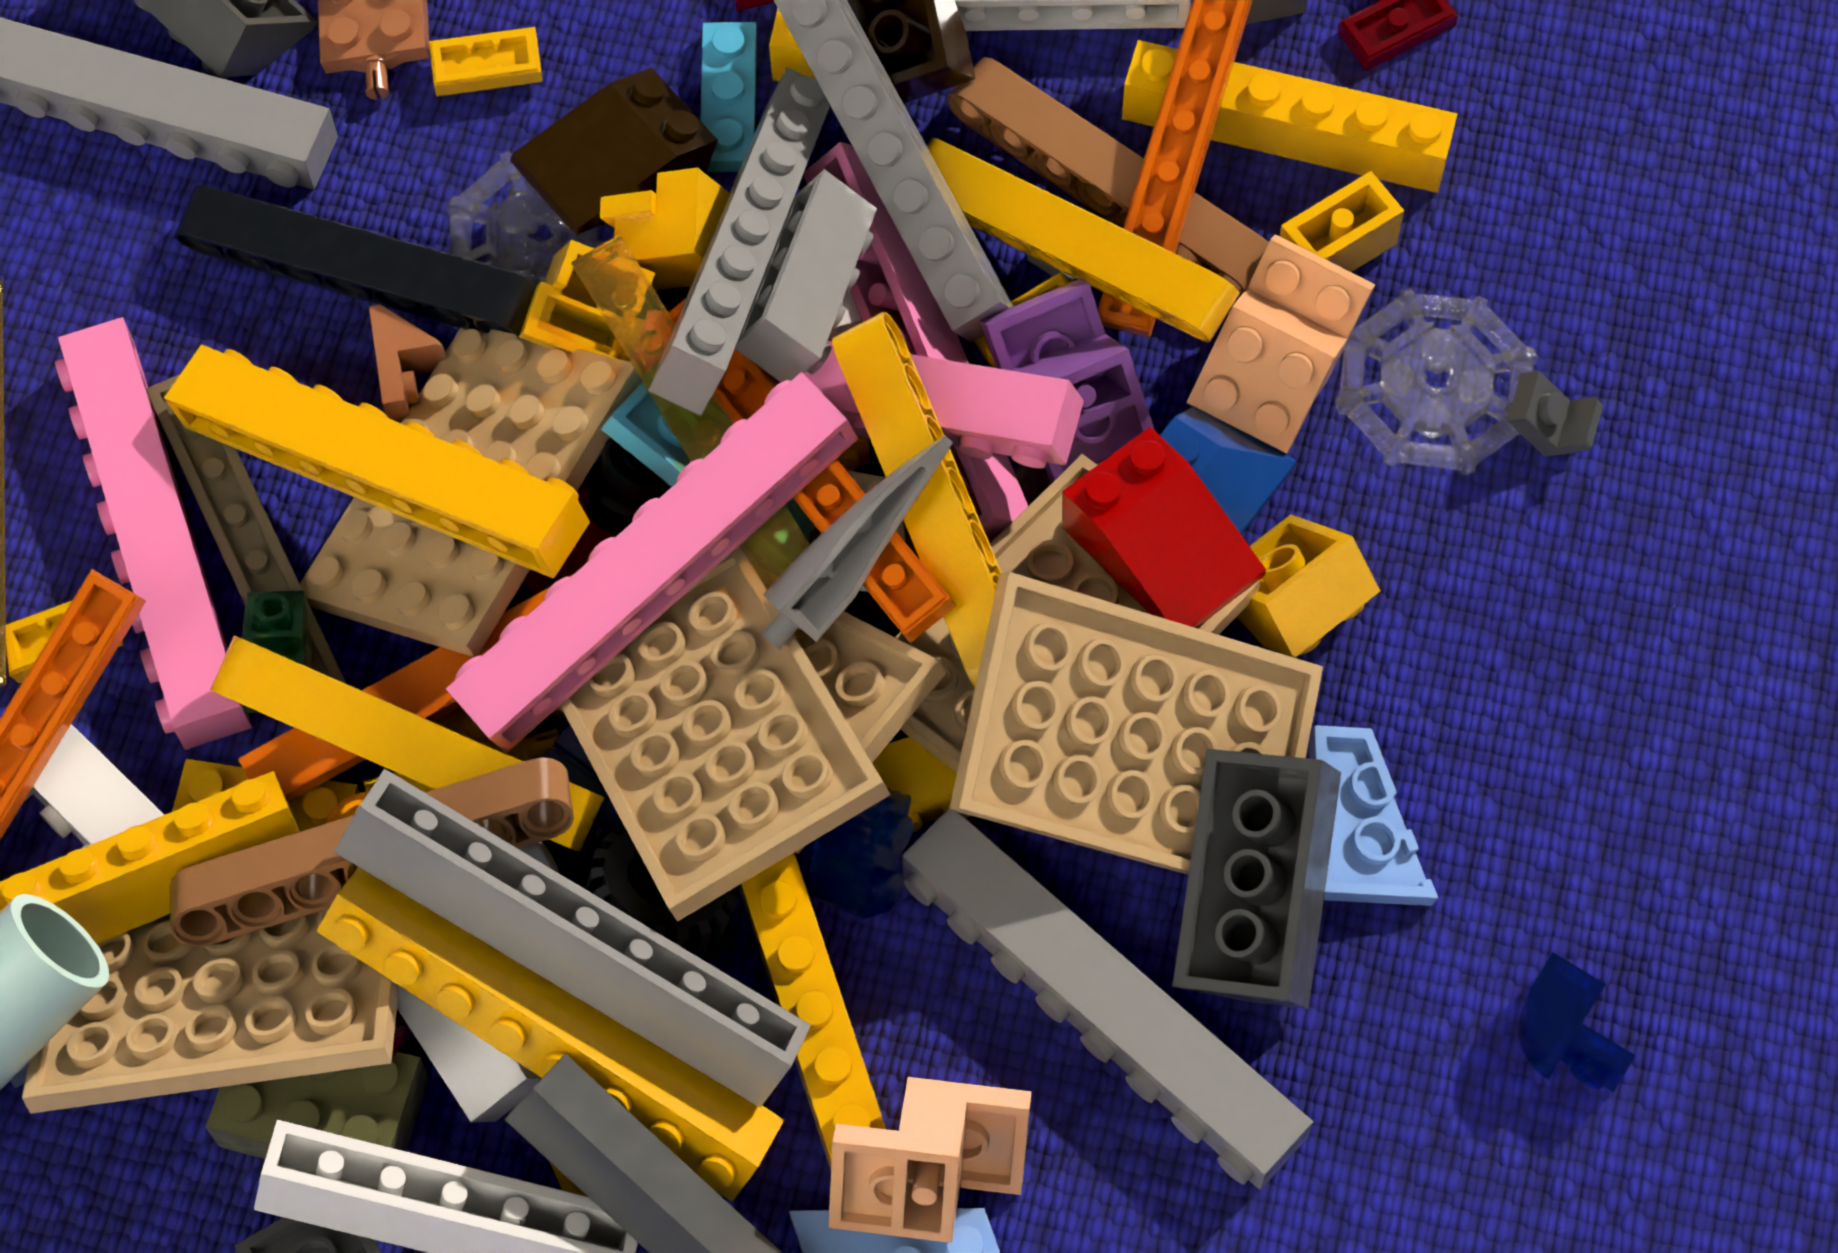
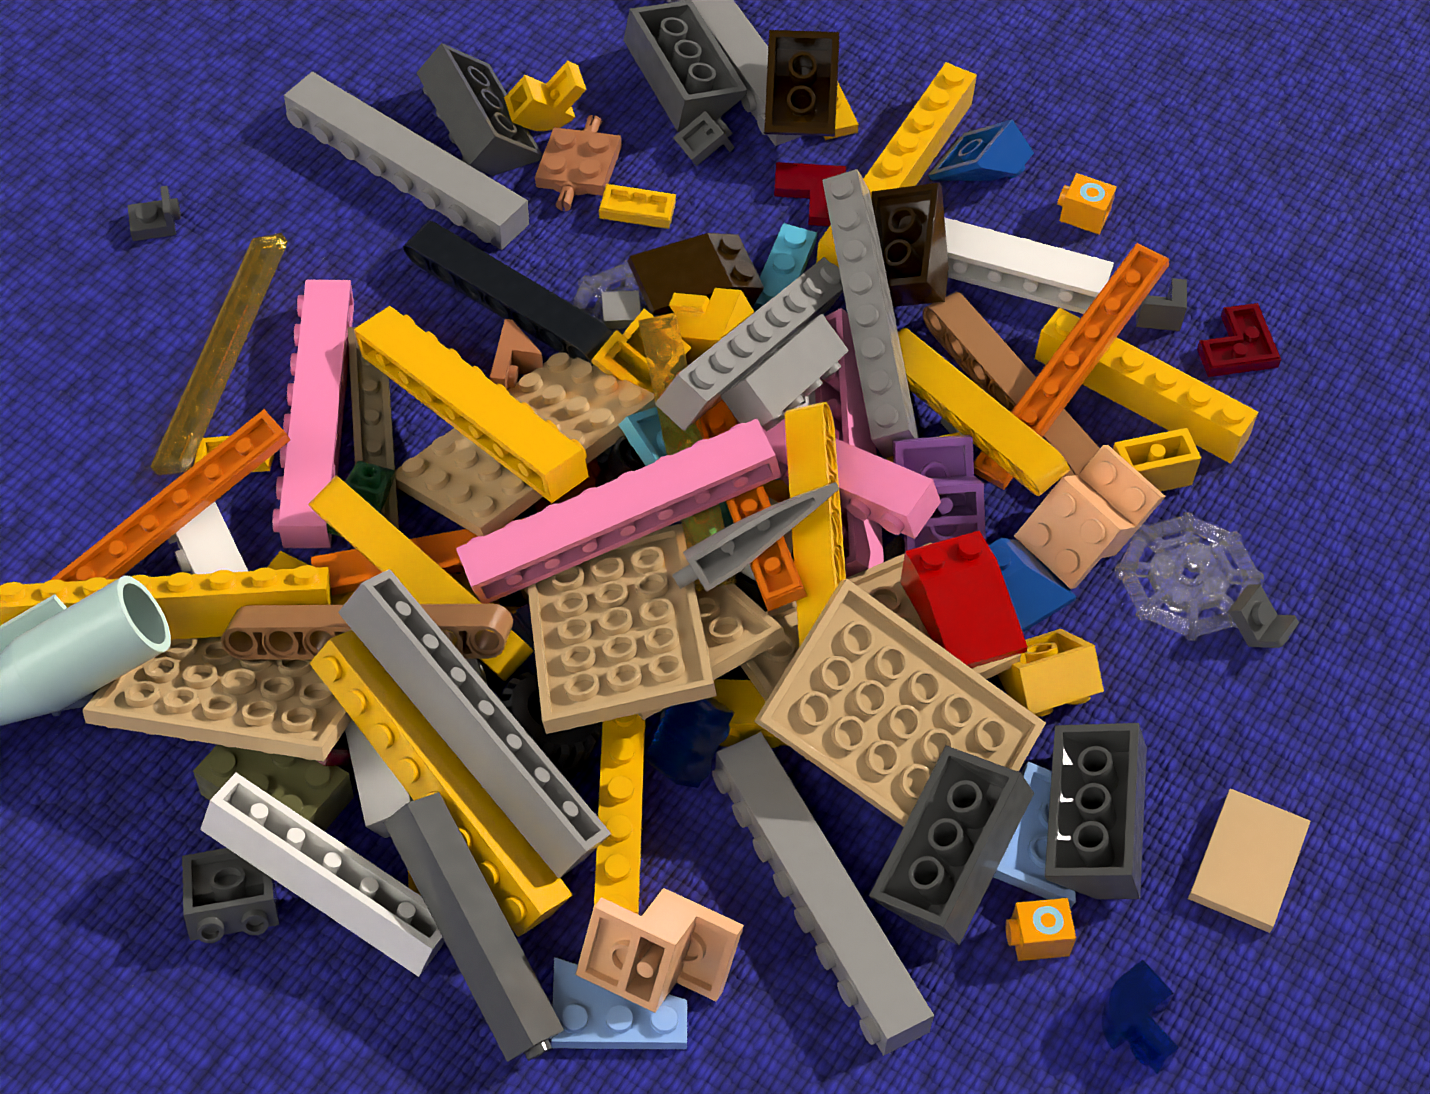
camera: 15 degrees right, 10 degrees down
(526, 236) = (620, 308): none -> light grey tile
(1407, 952) = (1041, 929): none -> light orange brick
(1426, 762) = (1097, 810): none -> dark grey slope
(1640, 761) = (1249, 860): none -> tan tile

